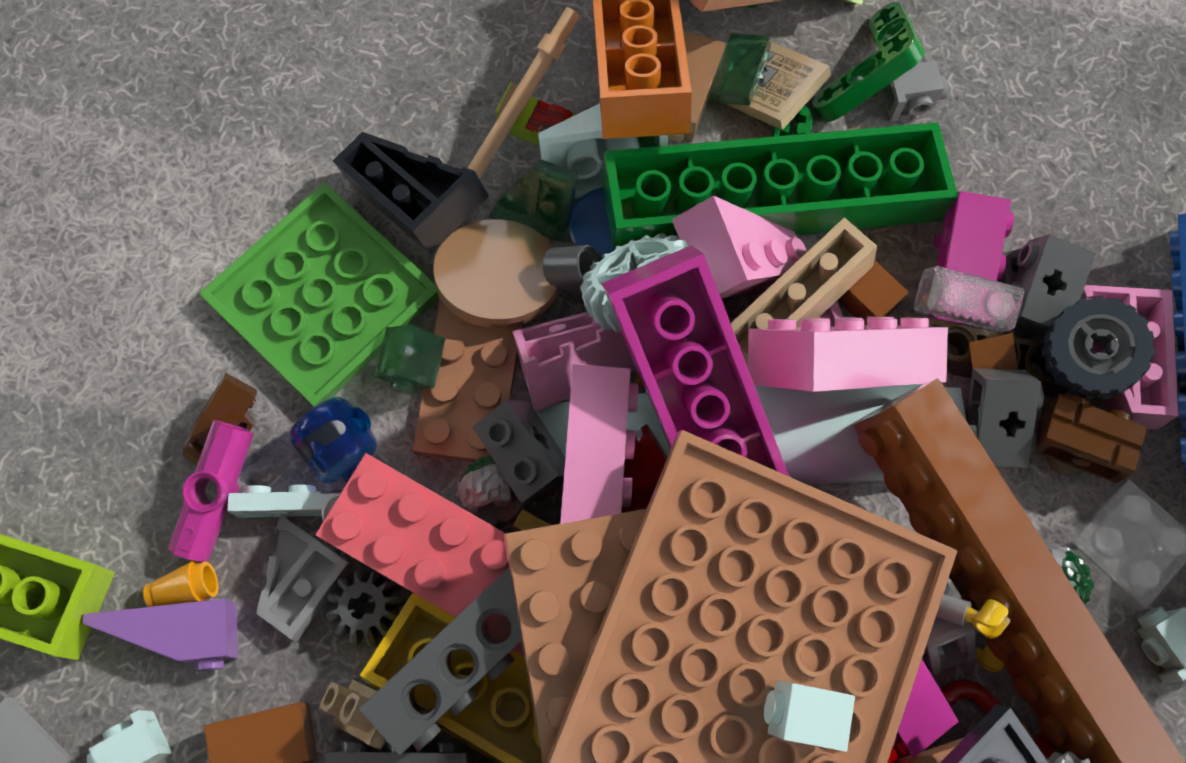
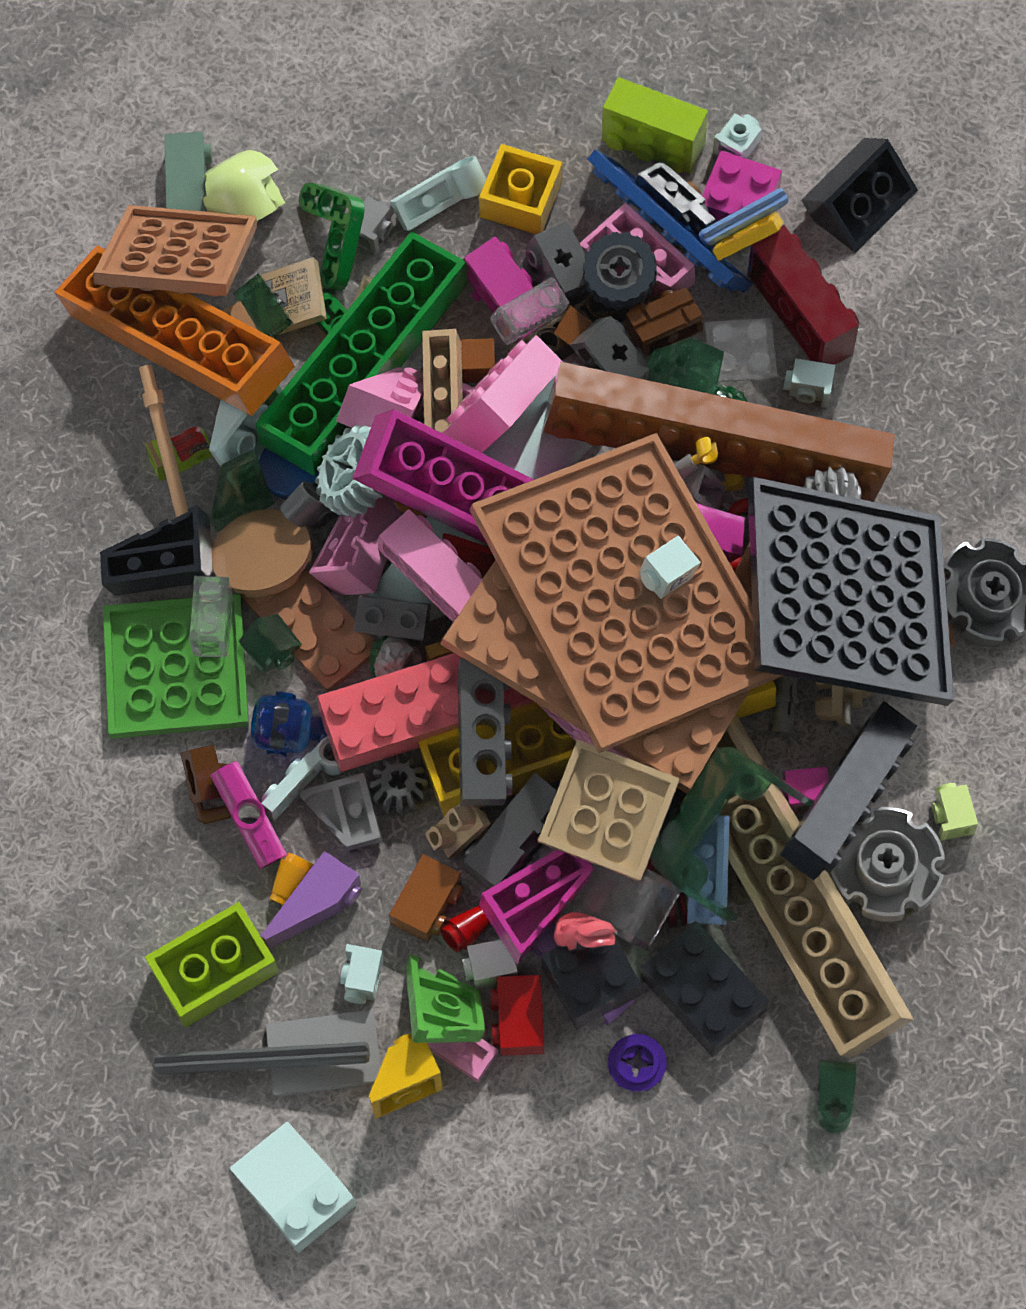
camera: 45 degrees left, 5 degrees down
(383, 281) = (211, 616): none -> clear brick
(1005, 120) = (439, 192): none -> light aqua plate
(1063, 507) = (687, 365): none -> clear green brick
(1083, 185) = (520, 189): none -> yellow brick

